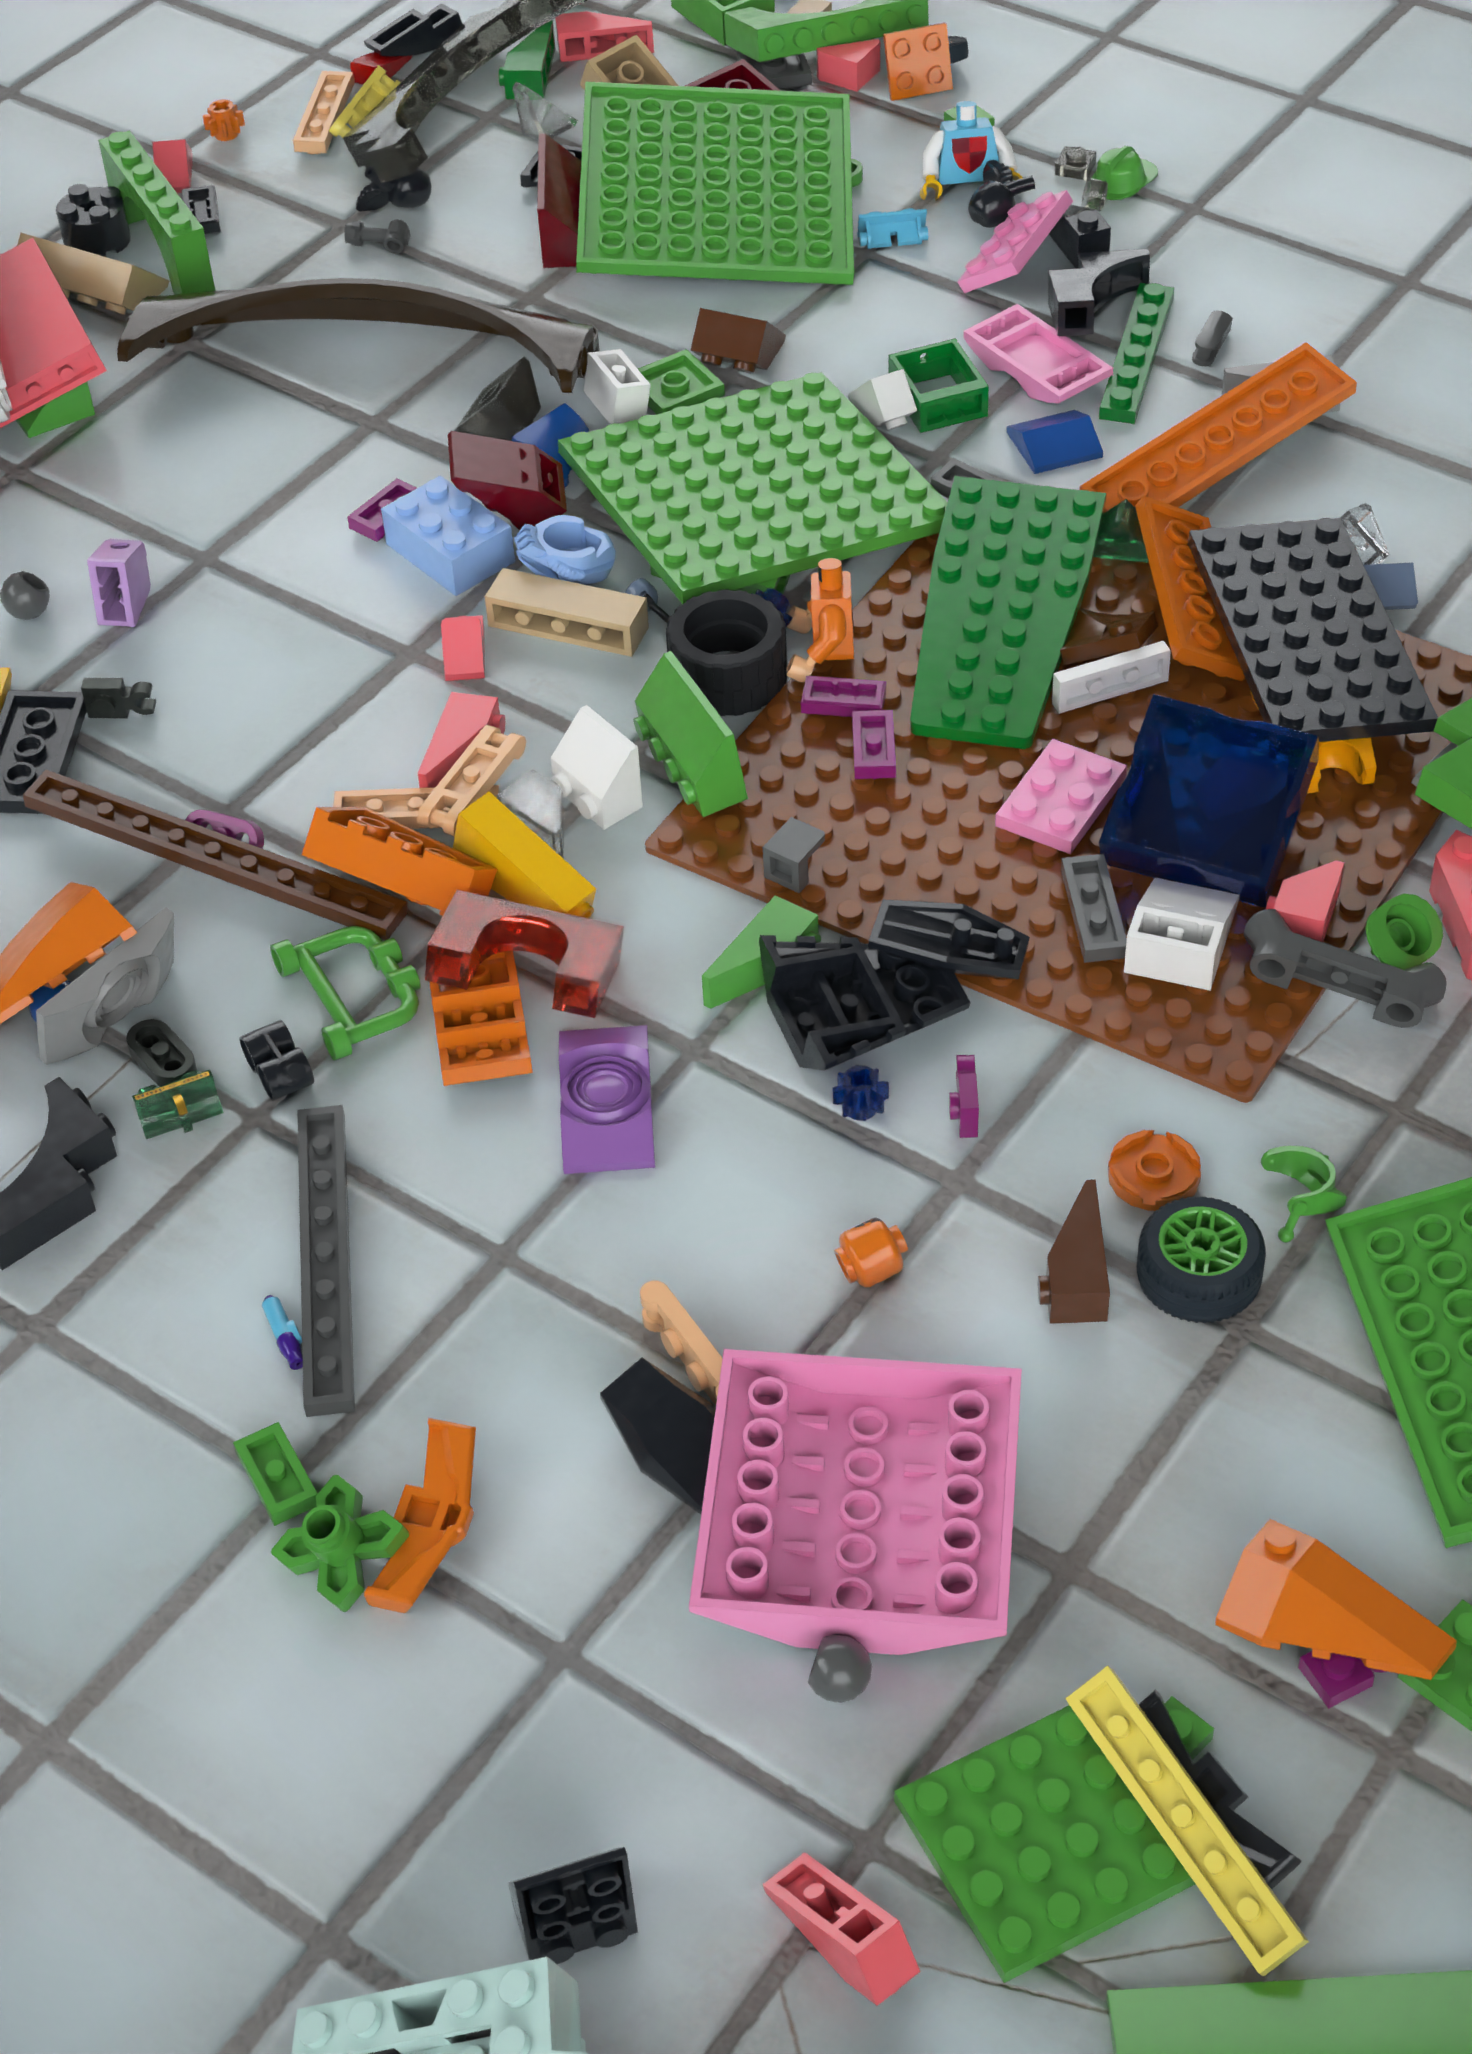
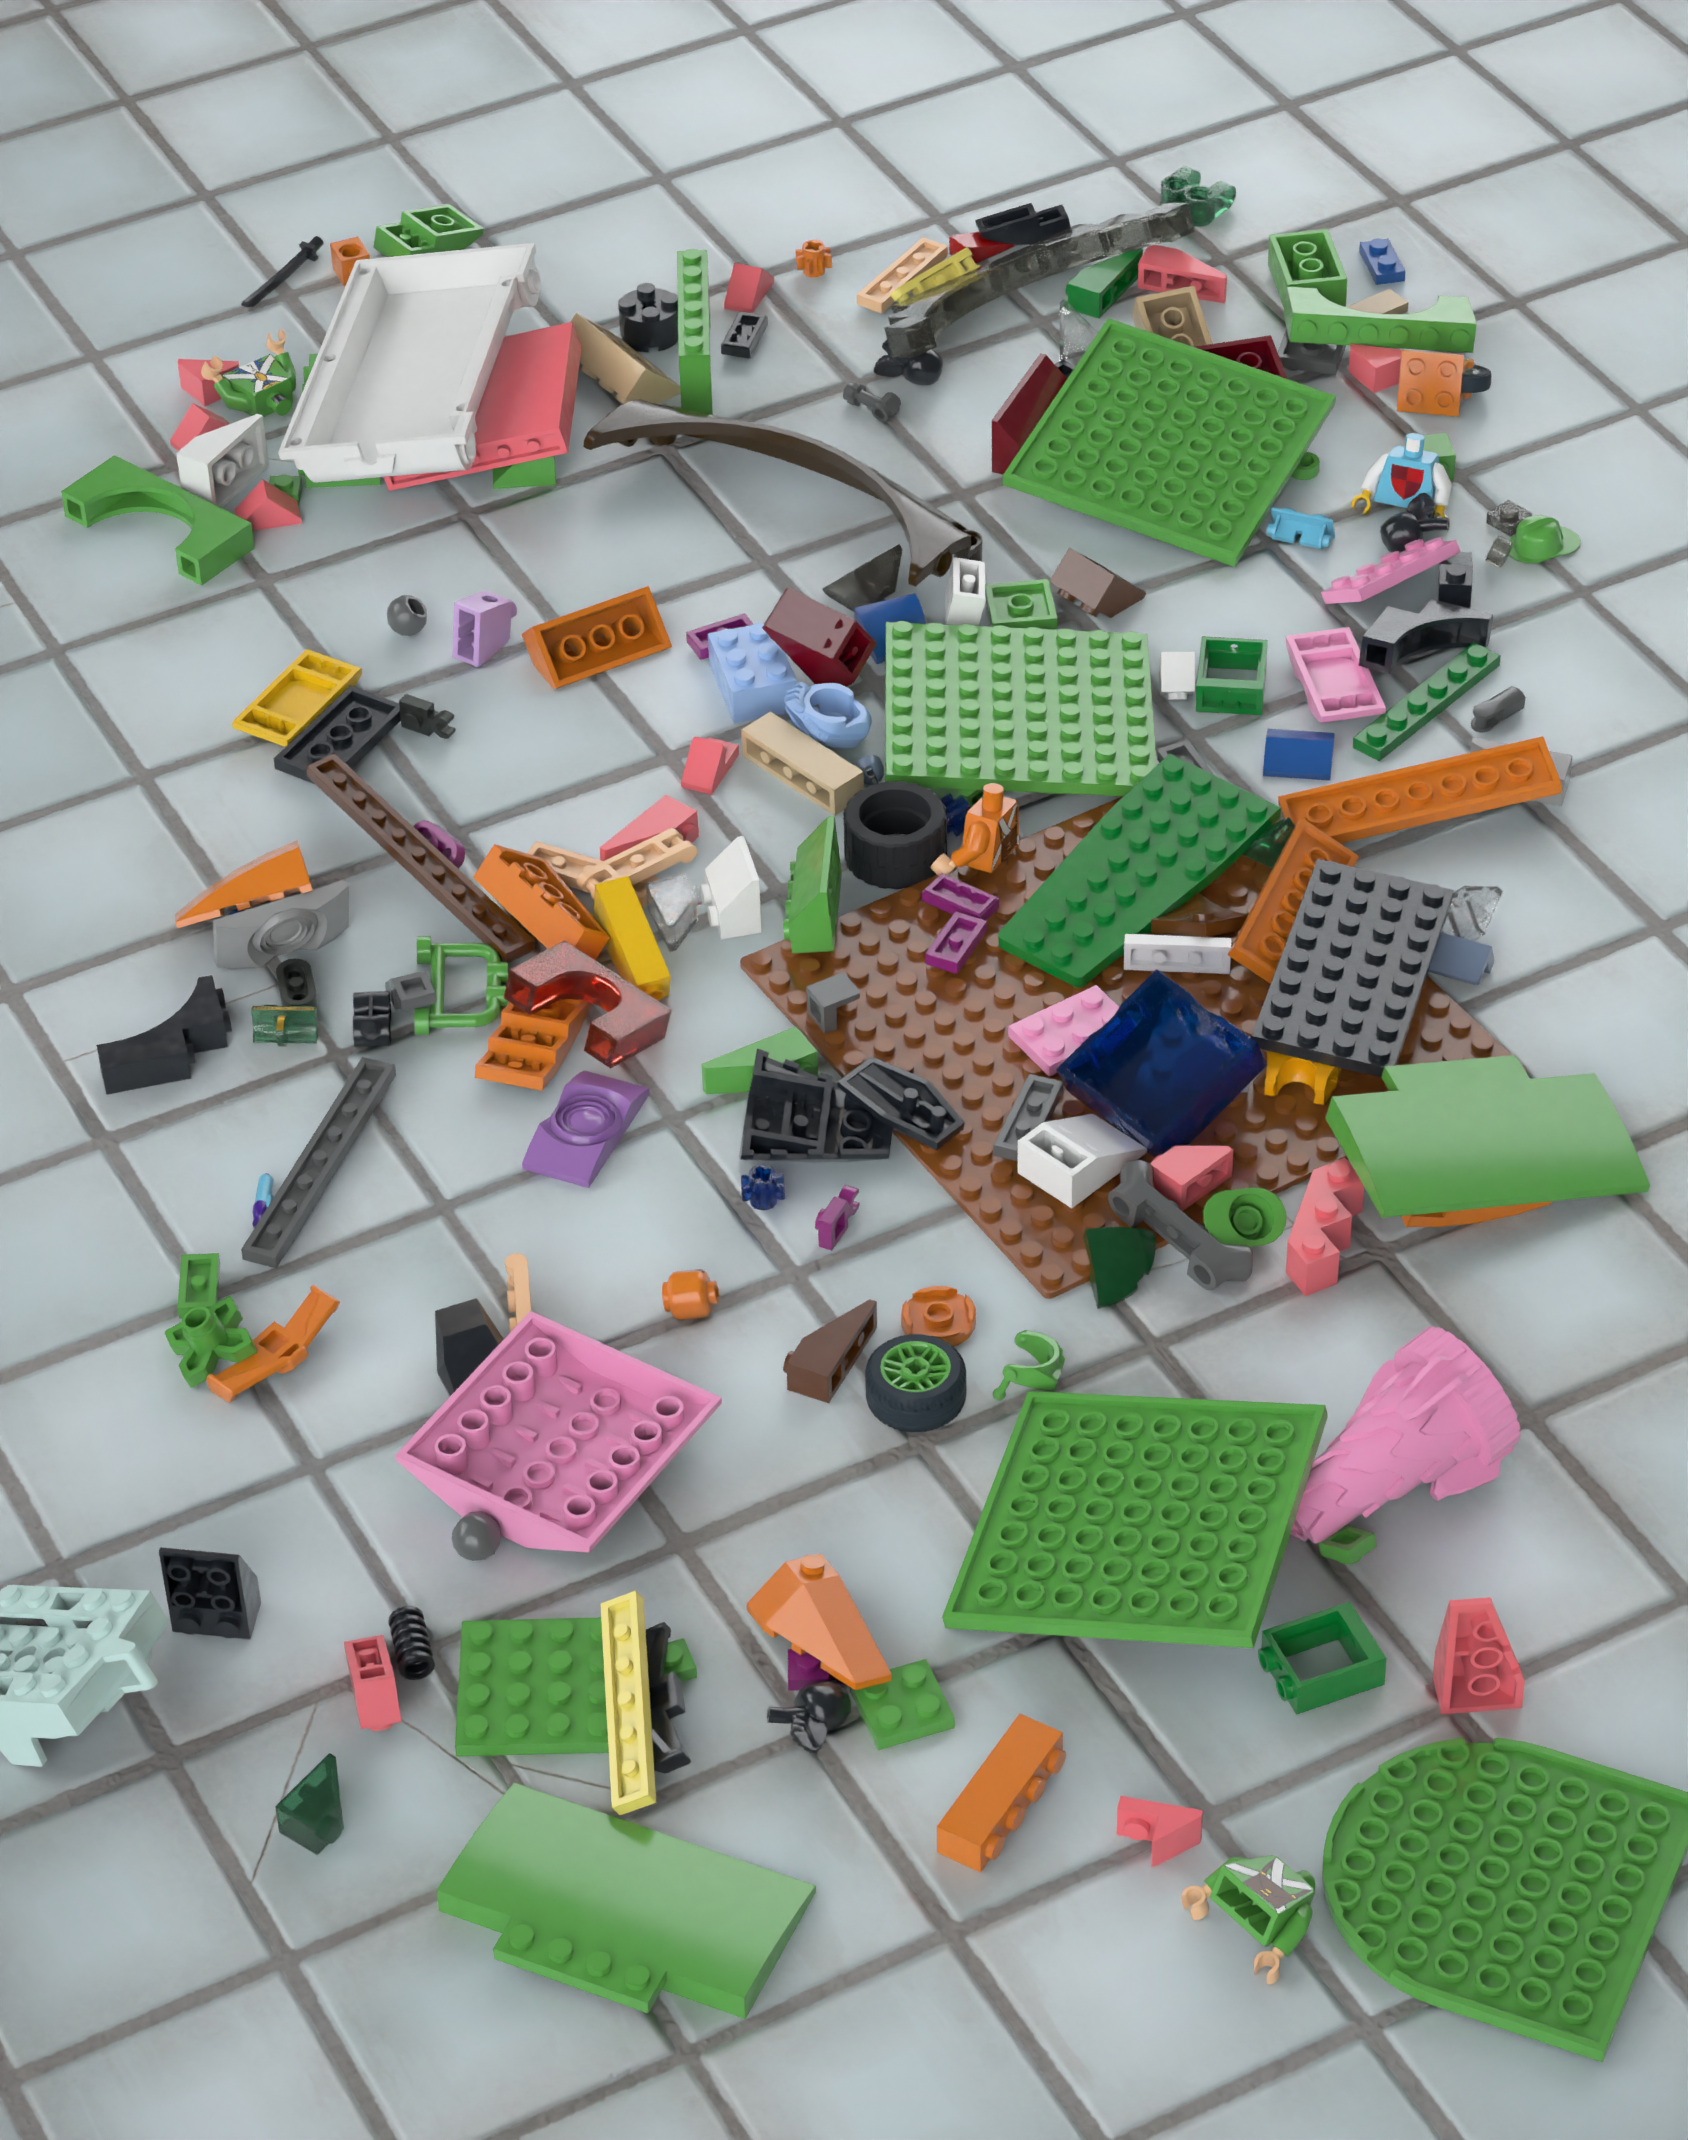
camera: 25 degrees right, 5 degrees down
(253, 554) = (597, 638): none -> orange slope
(309, 1009) = (411, 991): none -> dark grey slope
(854, 1850) = (411, 1643): none -> black piece
(1305, 1031) = (1118, 1261): none -> dark green brick
(1393, 1725) = (816, 1711): none -> black piece

